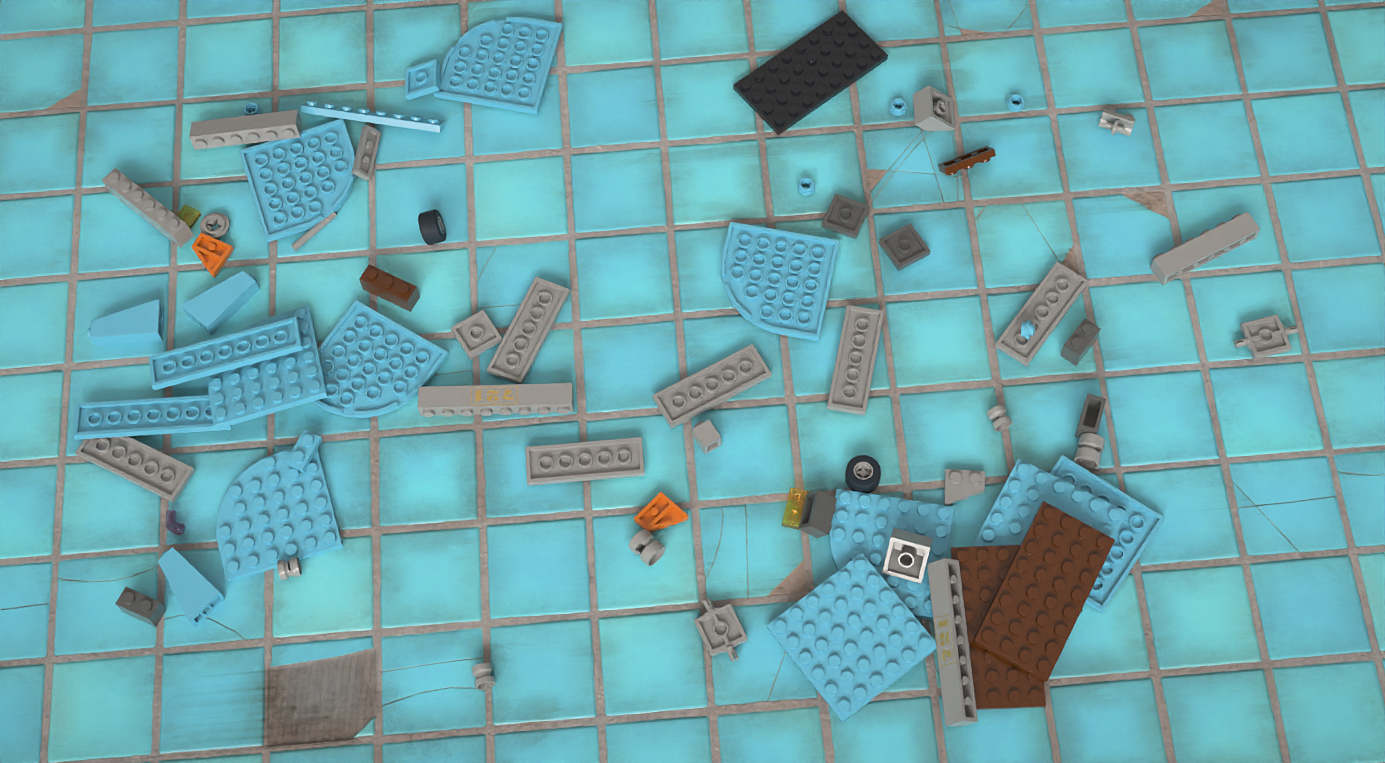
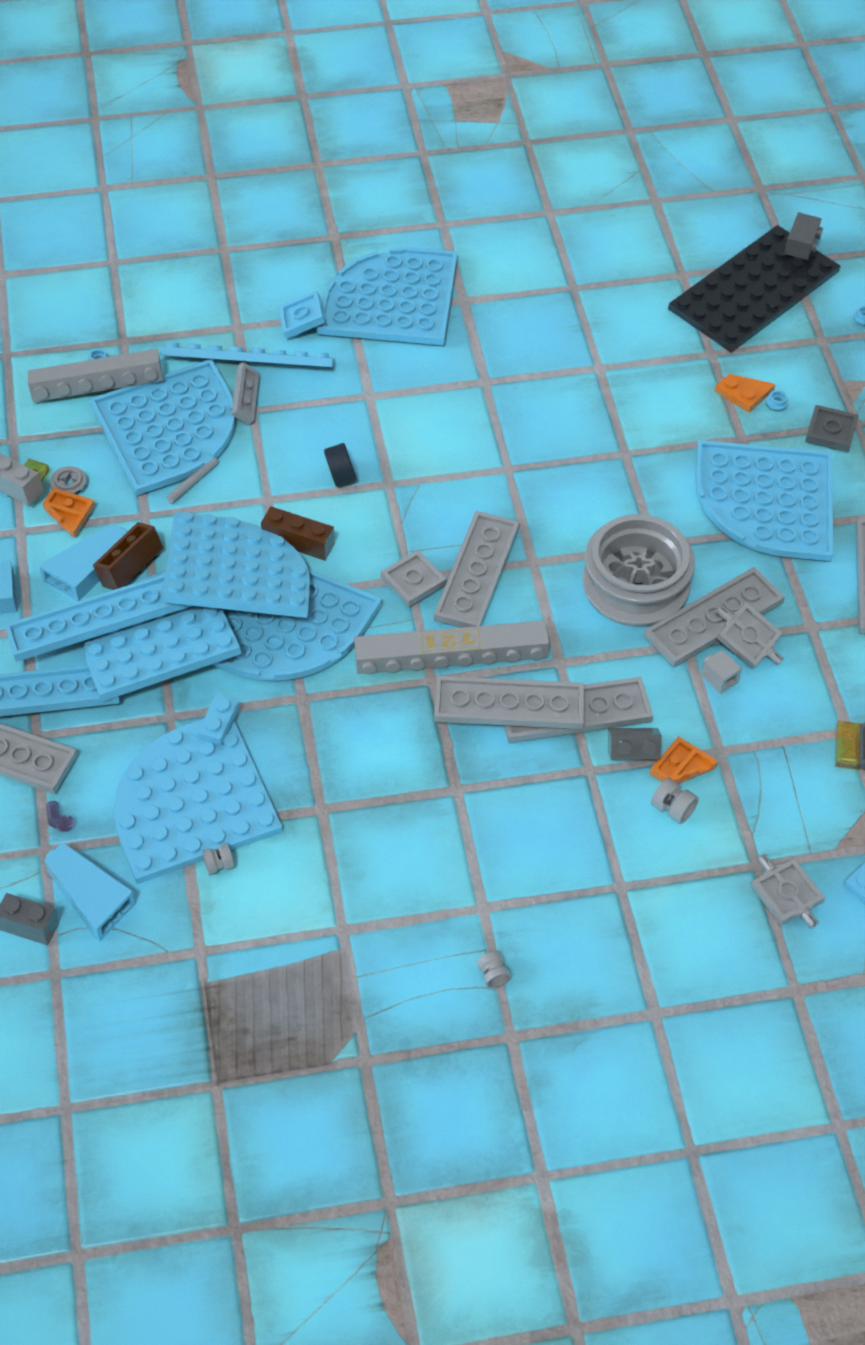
camera: 10 degrees left, 10 degrees down
(252, 300) = (128, 556): none -> reddish brown brick
(331, 319) = (234, 567): none -> medium azure plate
(531, 453) = (509, 702): none -> light grey plate
(624, 496) = (634, 743): none -> dark grey piece
(653, 371) = (649, 554): none -> light grey wheel
(734, 406) = (749, 635): none -> light grey plate
(780, 174) = (744, 391): none -> orange wing
(858, 27) = (803, 236): none -> dark grey piece

